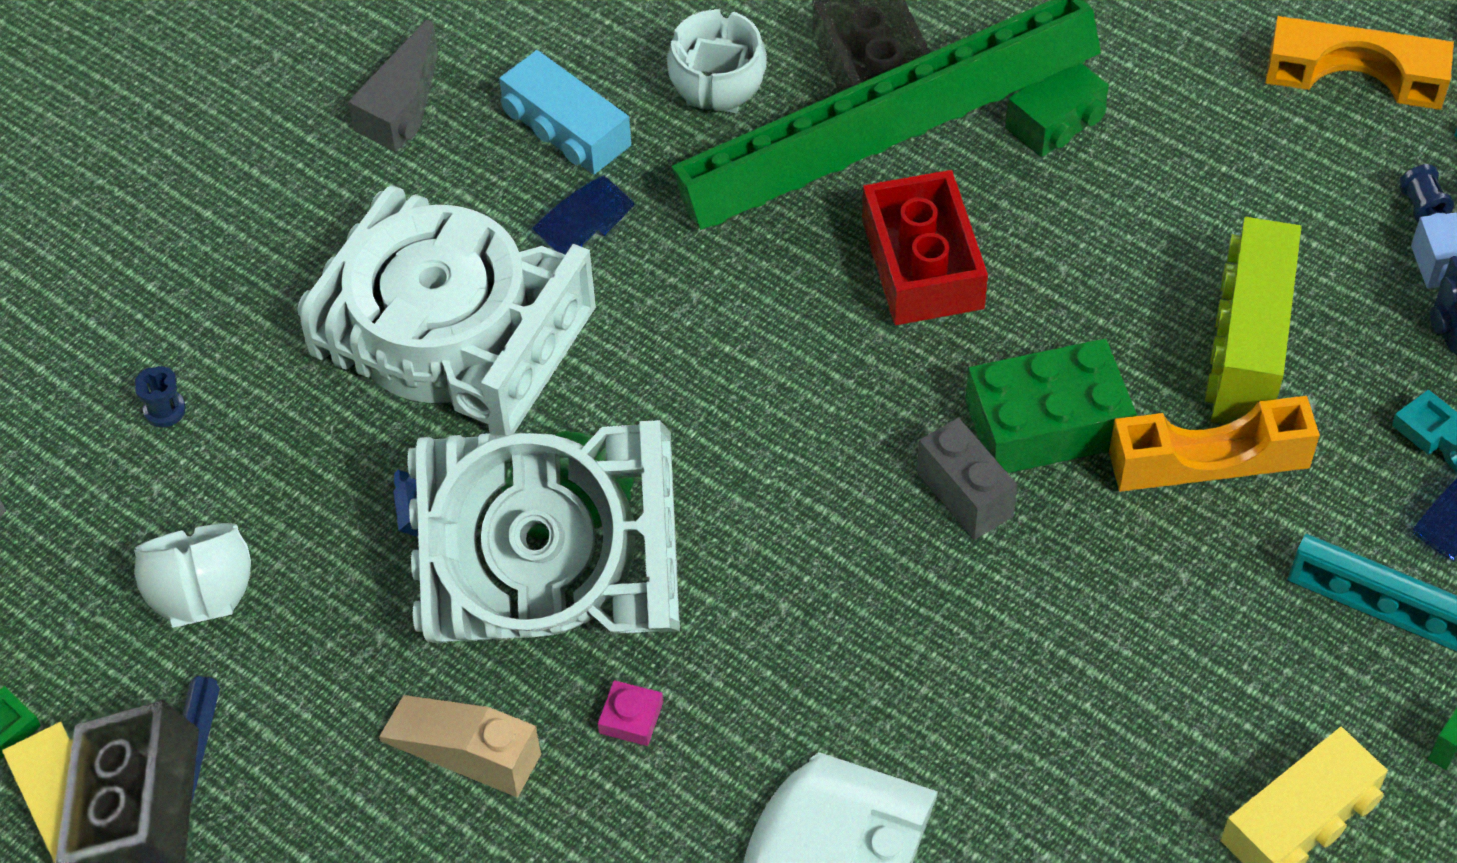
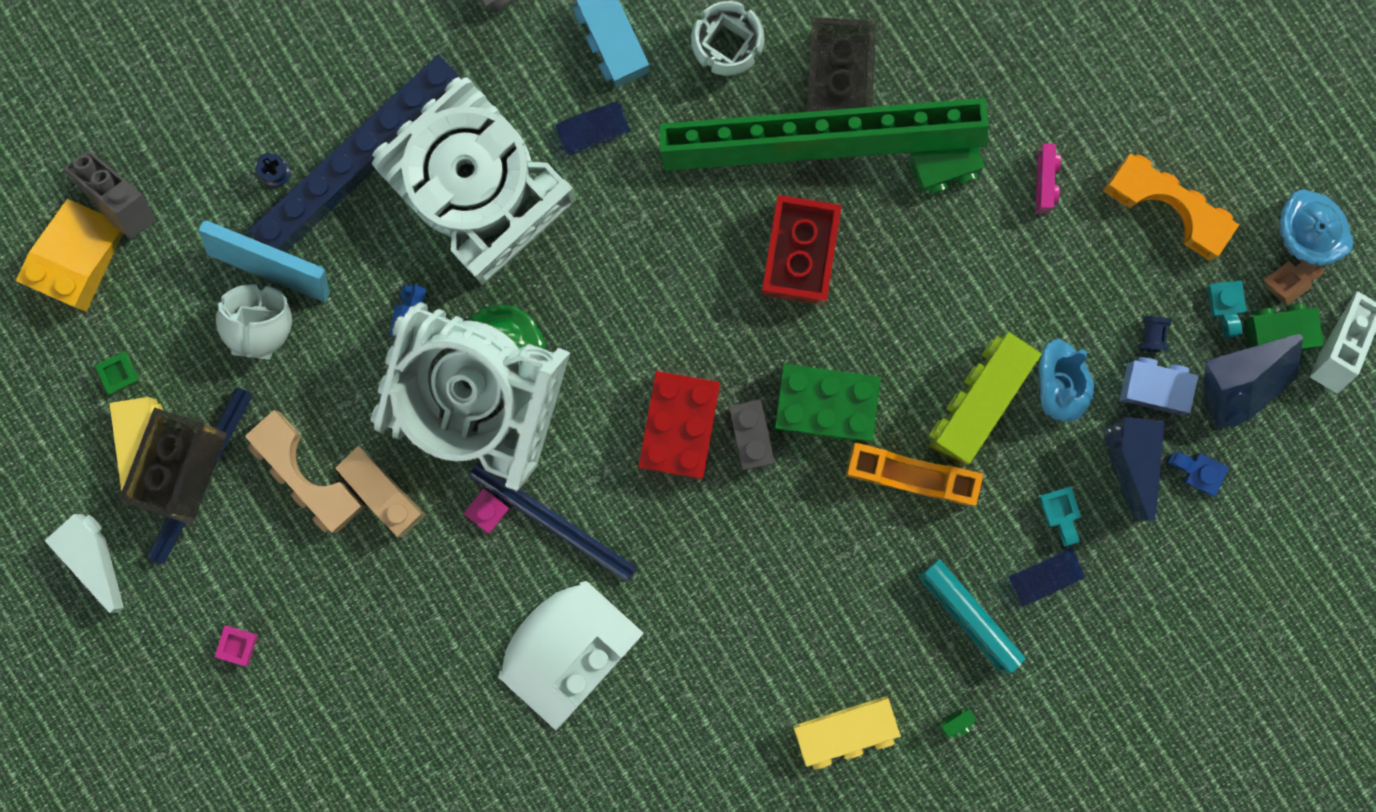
camera: 20 degrees right, 30 degrees up
(184, 491) = (264, 261): none -> medium azure tile
(253, 369) = (350, 161): none -> dark blue brick
(389, 778) = (277, 443): none -> tan arch
(737, 691) = (554, 523): none -> dark blue axle
(861, 501) = (679, 425): none -> red brick
(1189, 83) = (1046, 191): none -> dark pink plate
(1345, 273) = (1064, 381): none -> dark azure piece

